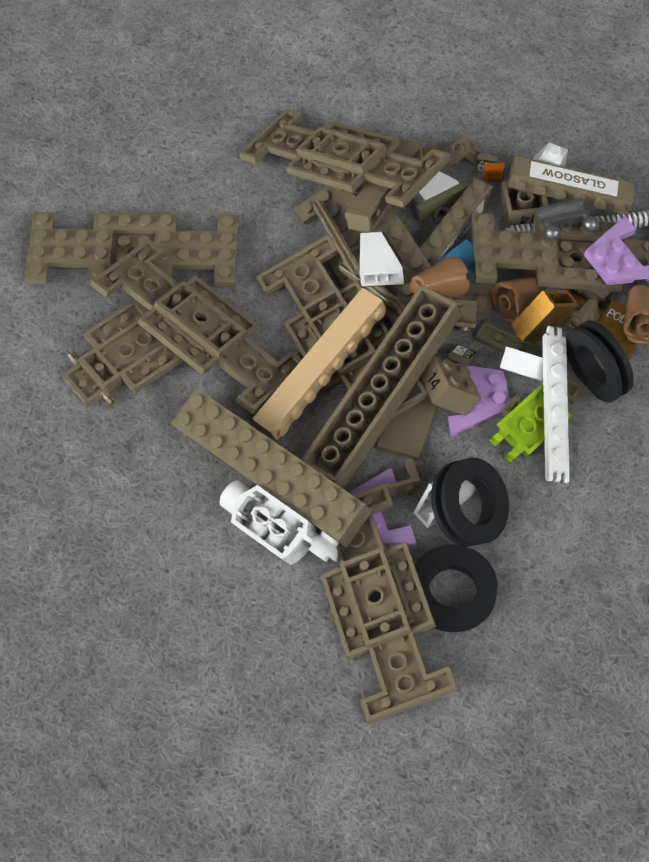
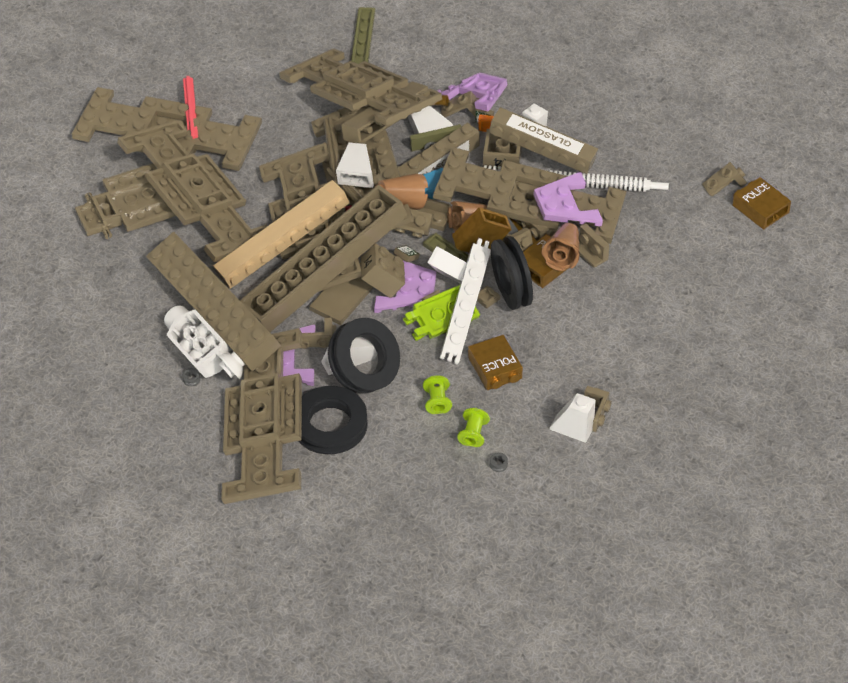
camera: 15 degrees right, 10 degrees down
(148, 209) = (189, 97): none -> coral axle
(273, 559) = (194, 381): none -> dark grey bush
(313, 88) = (363, 35): none -> olive tile
(475, 125) = (483, 86): none -> lavender wing
(563, 530) = (438, 401): none -> lime hose
(569, 212) = (527, 160): flat silver gear -> none
(611, 474) = (495, 362): none -> pearl gold brick
(618, 562) = (475, 420): none -> lime hose

